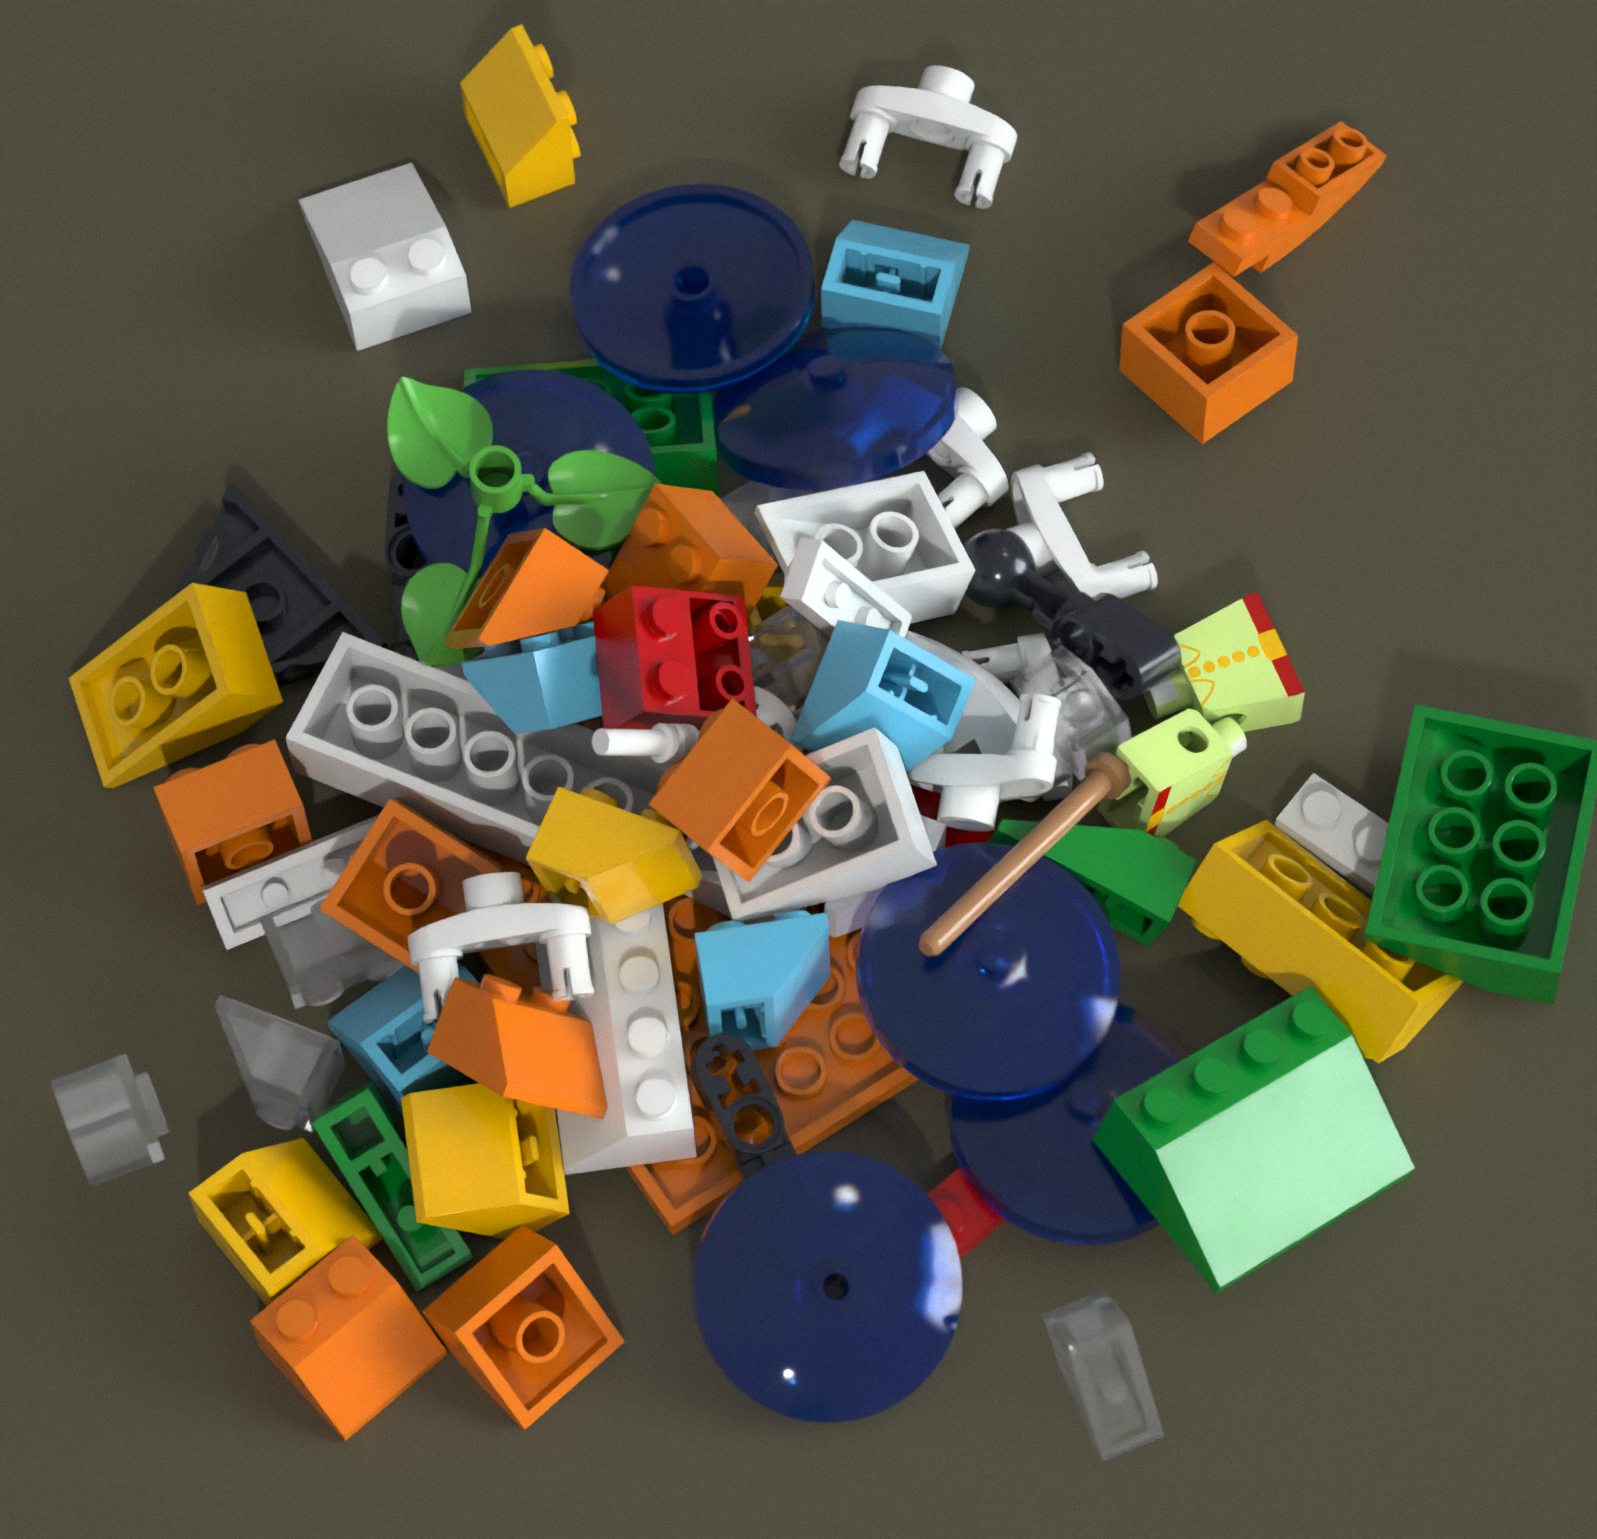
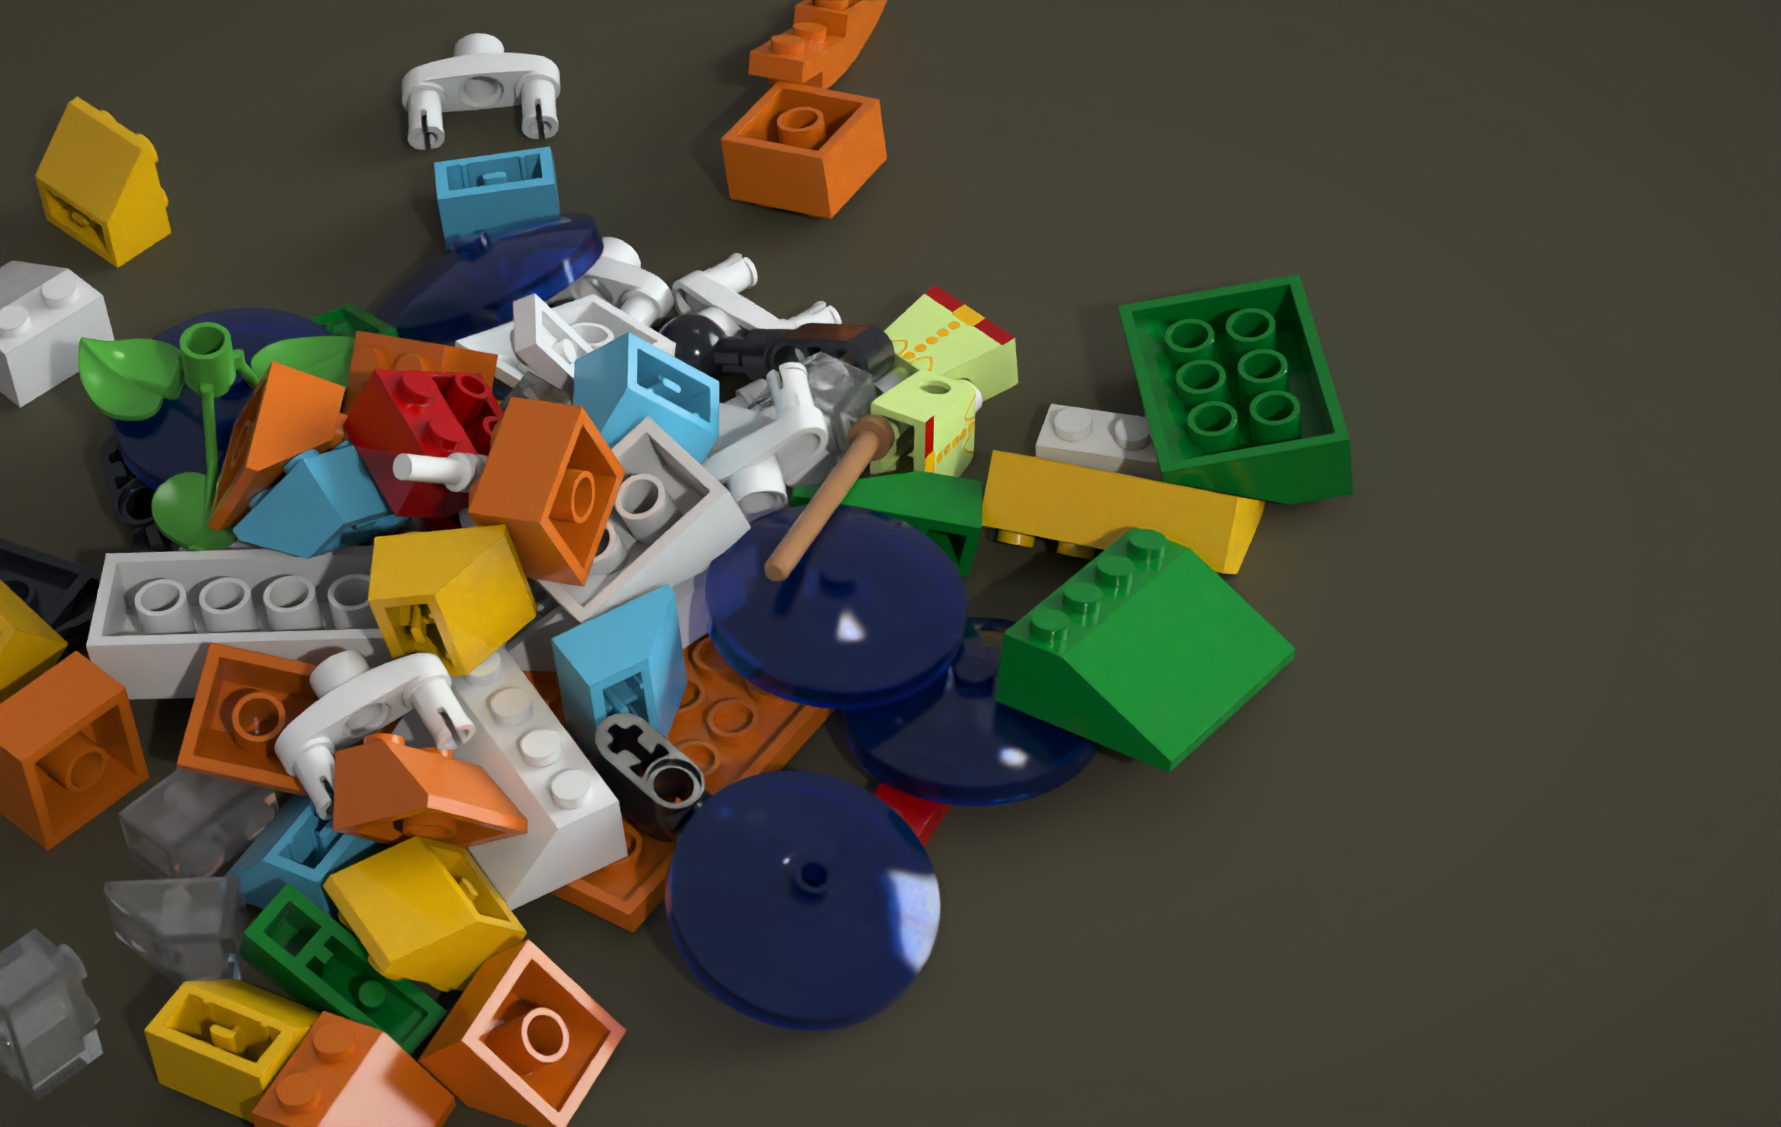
camera: 20 degrees left, 20 degrees down
(279, 882) = (91, 818): white plate -> none
(692, 288) = (319, 245): clear blue dish -> none
(1104, 1374) = (1096, 883): clear slope -> none

